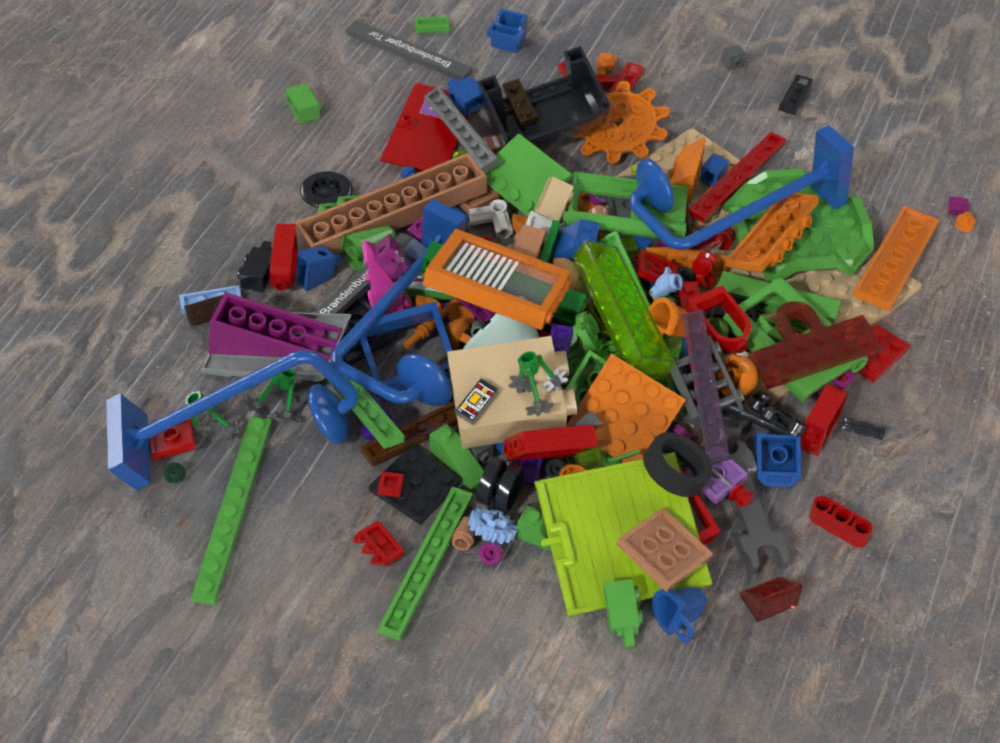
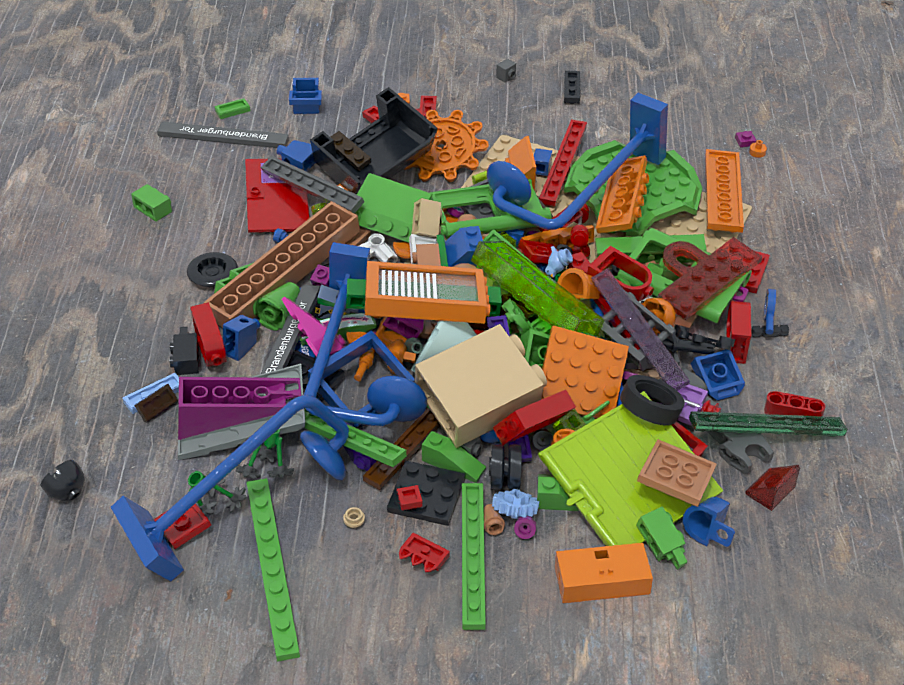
camera: 20 degrees left, 5 degrees down
(85, 361) = (65, 482): none -> black cylinder
(174, 468) = (201, 553): clear green plate -> none
(332, 481) = (354, 517): none -> tan plate
(393, 257) = (314, 305): magenta torso -> none
(477, 401) = (462, 398): tile -> none
(529, 364) = (502, 349): plant -> none
(542, 625) = (603, 572): none -> orange brick
(589, 419) = (559, 386): dark grey slope -> none
(797, 529) = (767, 423): none -> clear green plate
(871, 407) = (769, 309): none -> blue piece

